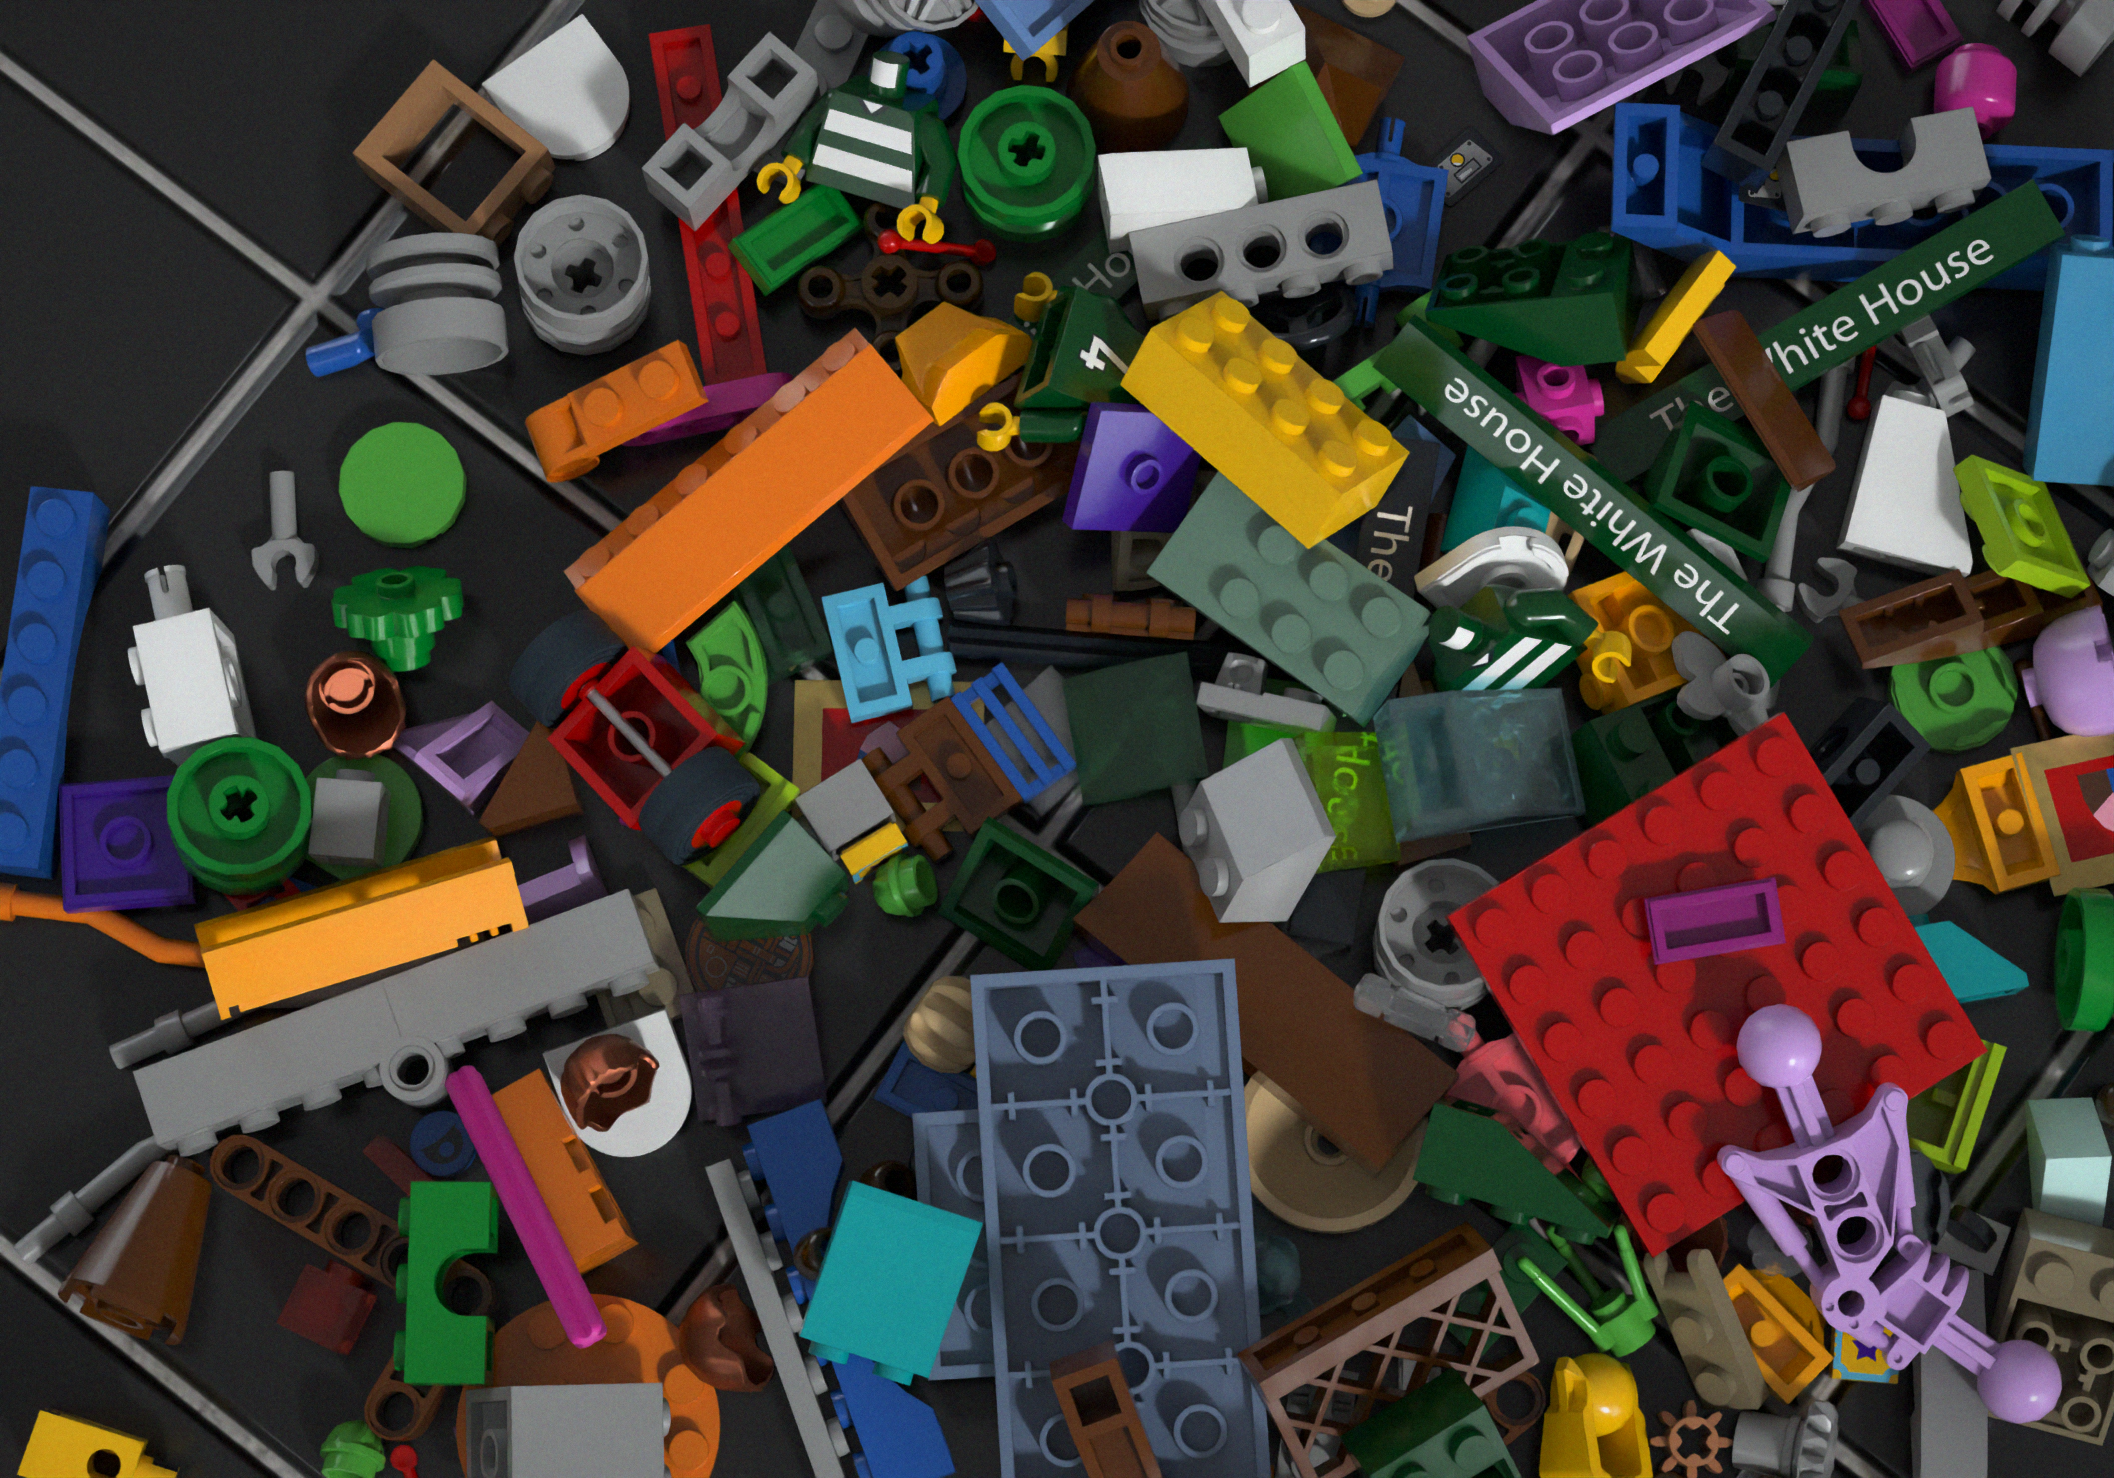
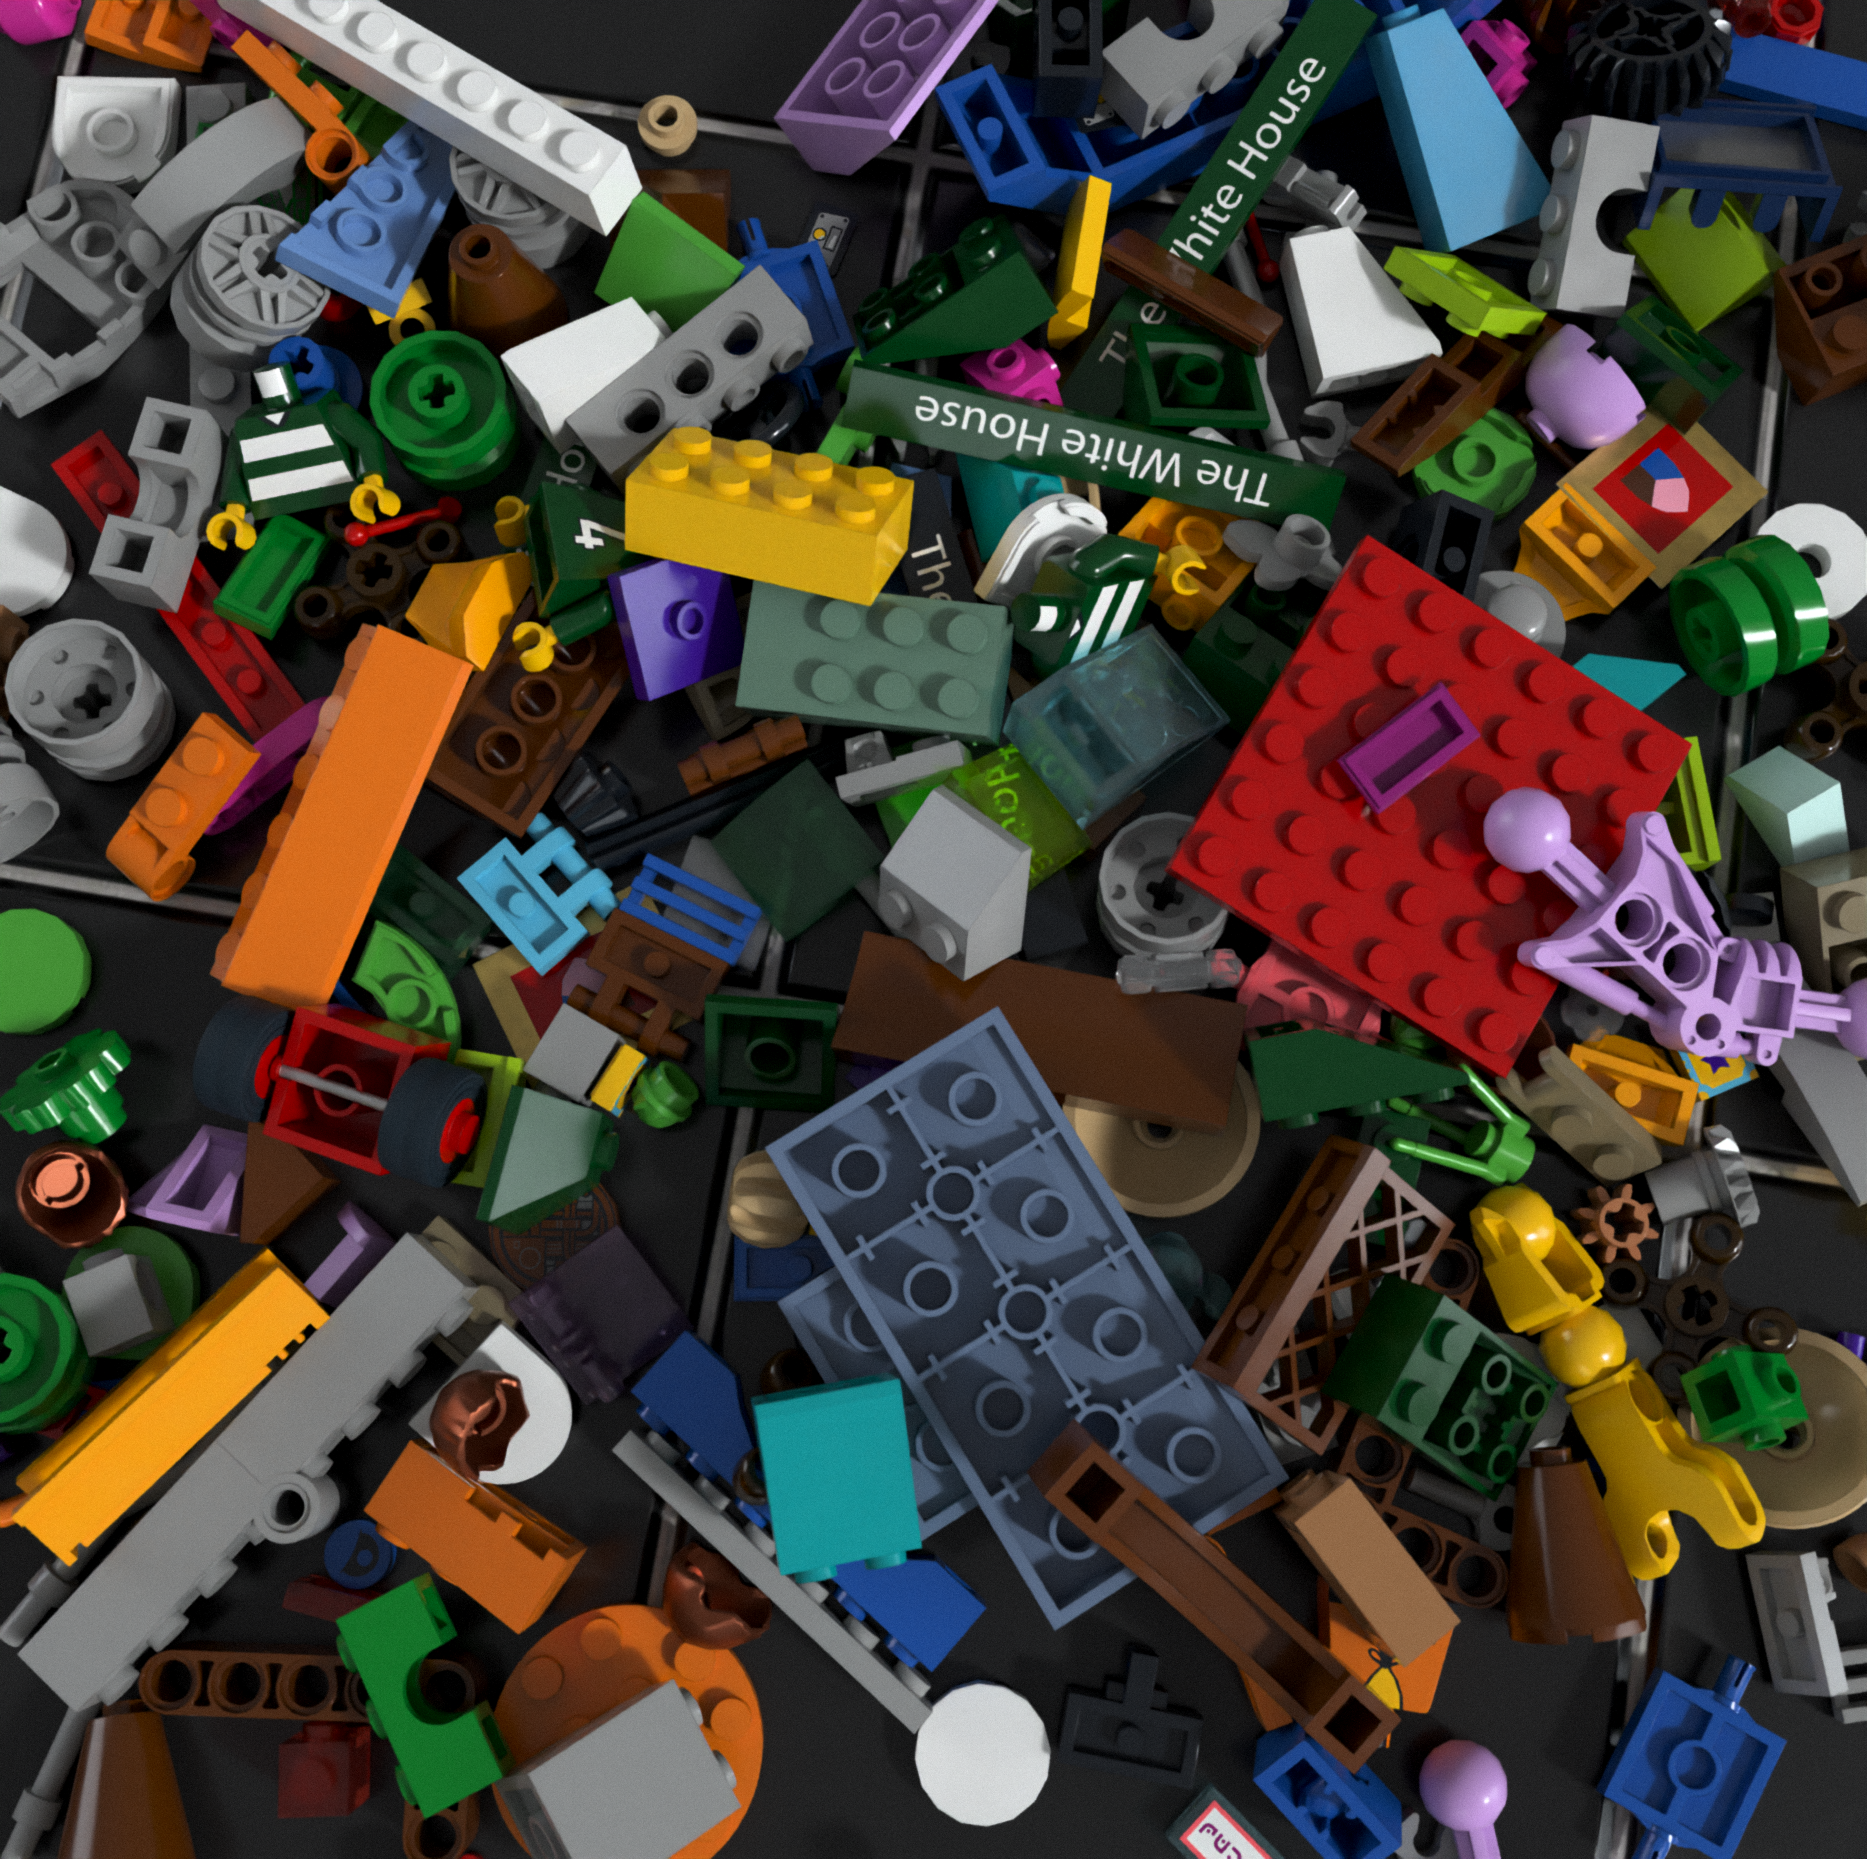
camera: 30 degrees left, 0 degrees up
(525, 1207) = (461, 1587): dark pink axle -> none

